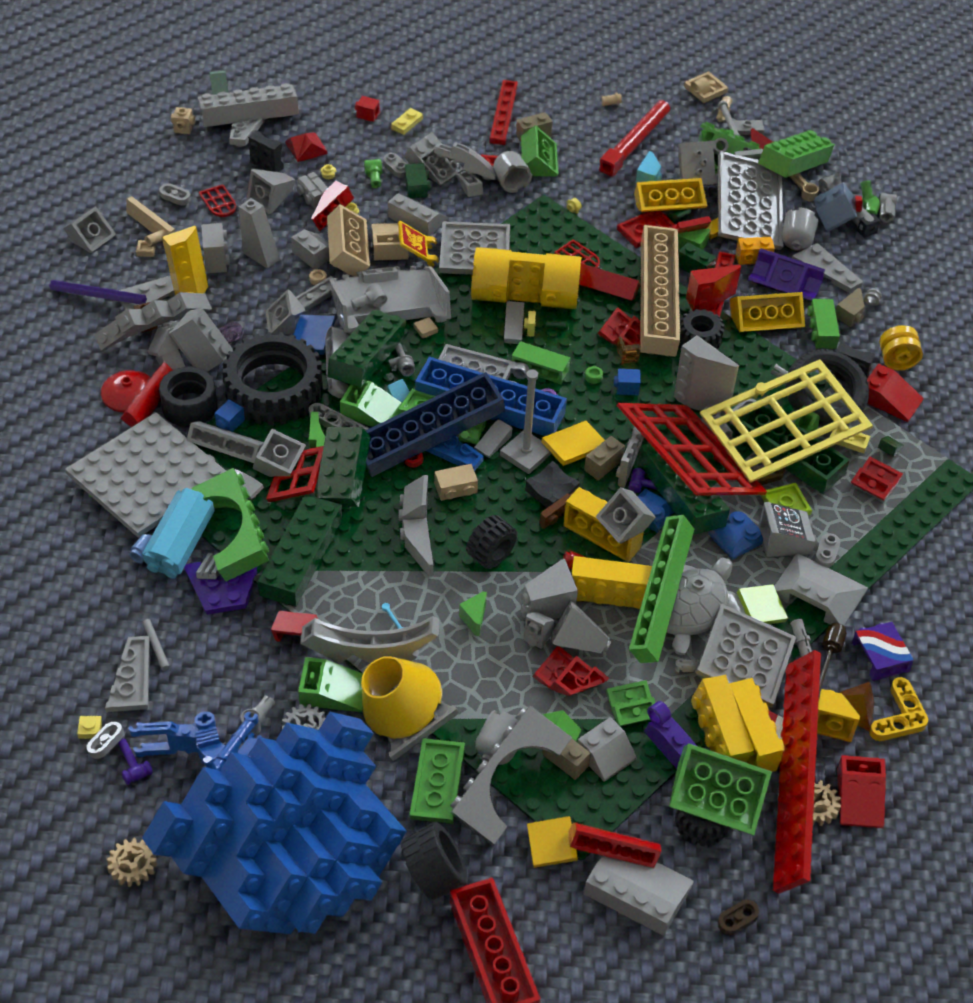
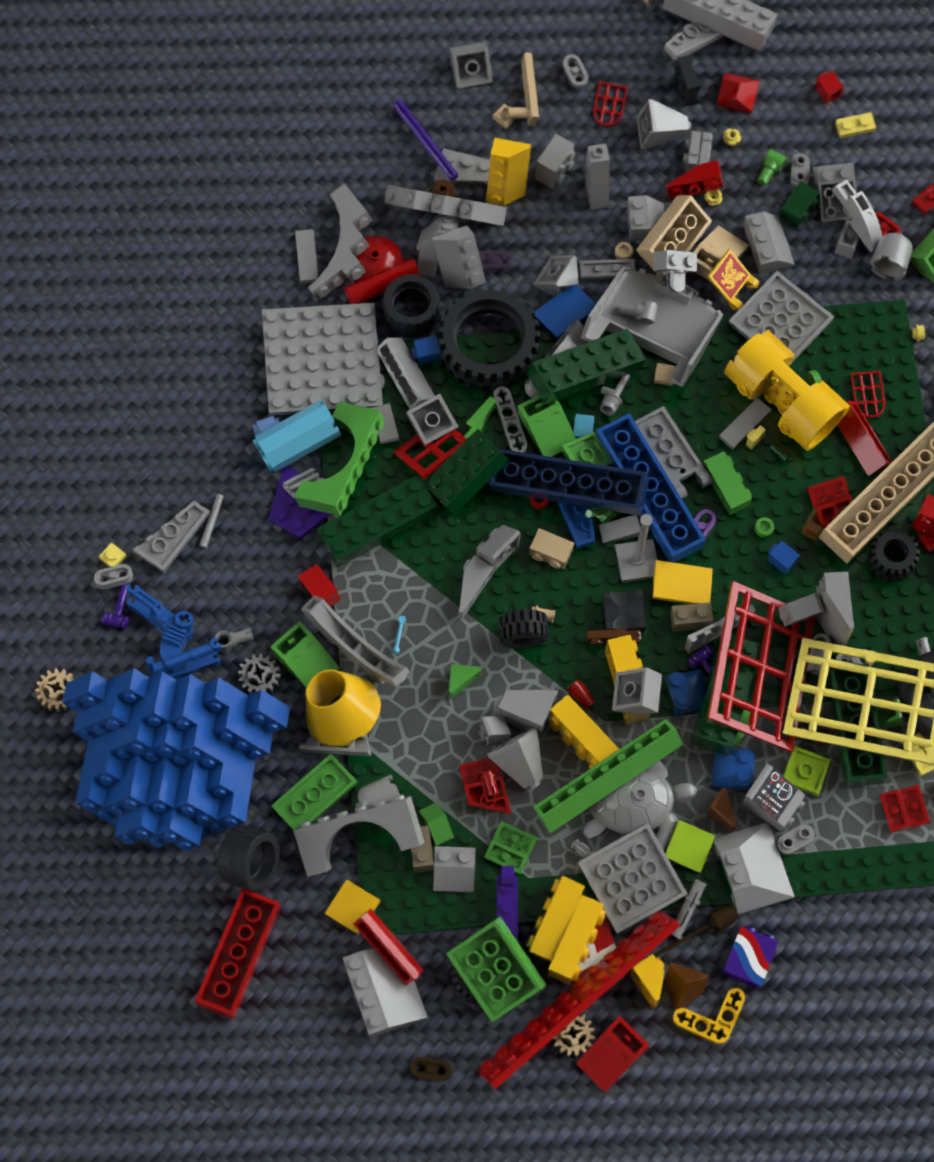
camera: 40 degrees right, 20 degrees up
(68, 418) = (306, 256): none -> light grey tile
(107, 395) = (351, 243): none -> light grey arch
(370, 252) = (675, 265): none -> light grey brick
(573, 665) = (489, 782): none -> red pin
(681, 393) = (800, 609): none -> light grey slope
(760, 566) = (722, 812): none -> reddish brown slope

